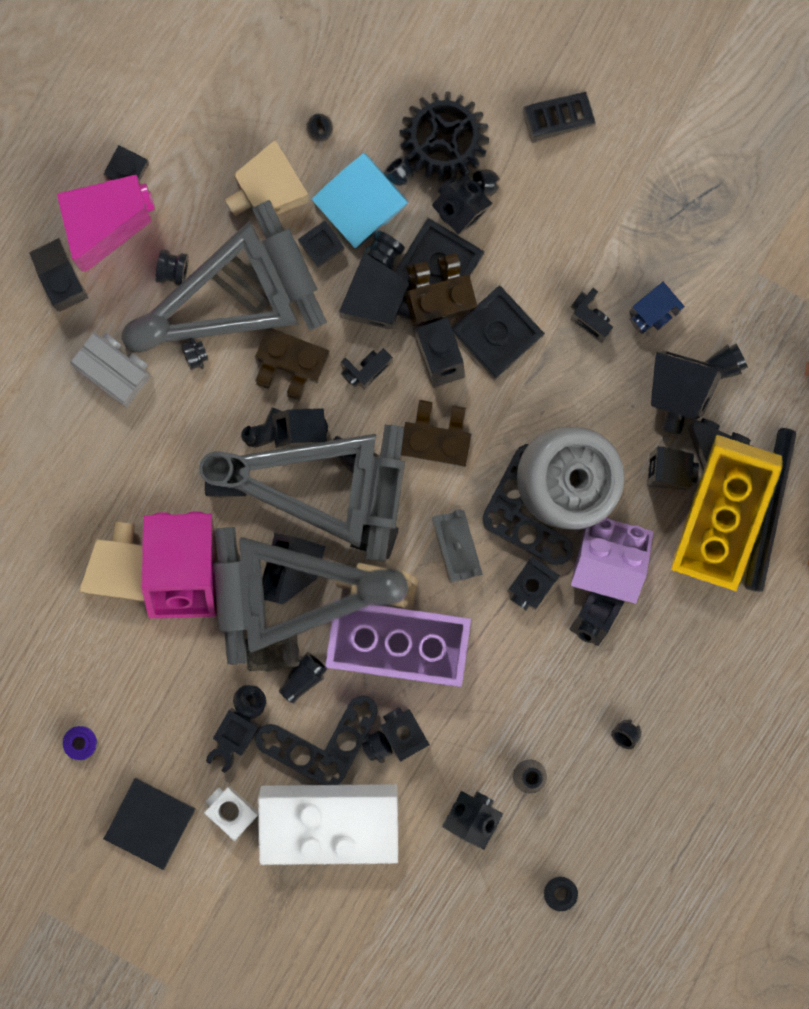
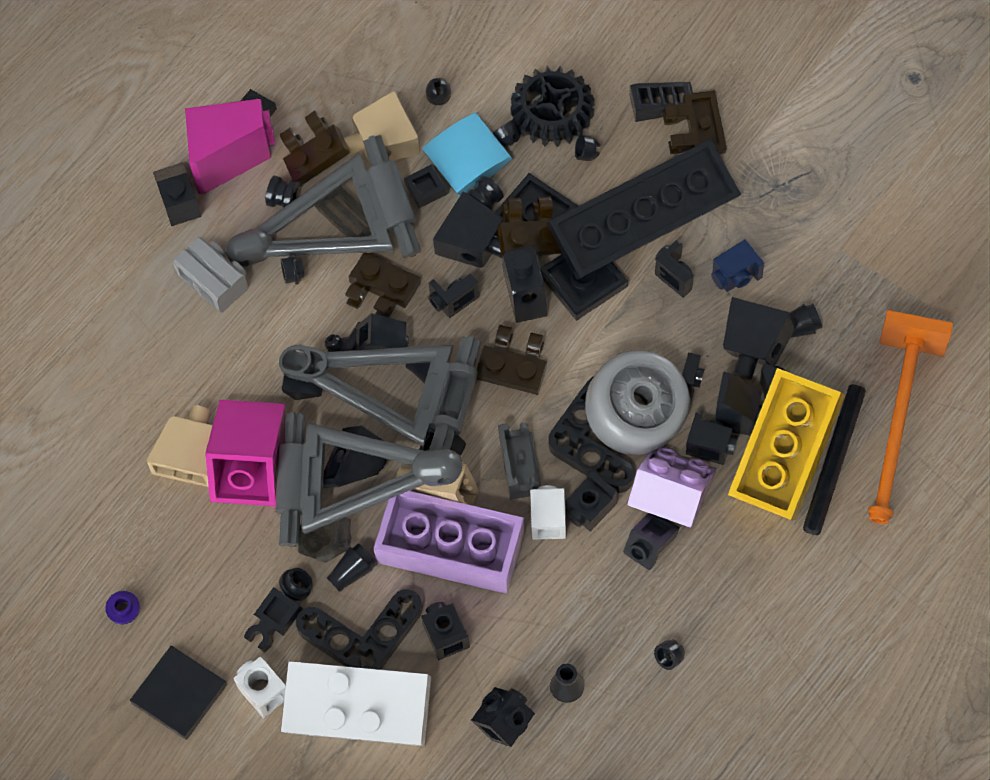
camera: 15 degrees right, 20 degrees down
(200, 221) = (318, 153): none -> dark brown plate
(377, 746) = (416, 640): black plate -> none
(461, 203) = (561, 160): black brick -> none
(491, 599) = (548, 513): none -> white brick
(554, 255) = (643, 209): none -> black plate
(605, 143) = (703, 122): none -> dark brown plate
(620, 433) = (692, 373): none -> black plate
(646, 504) = (710, 440): none -> black brick

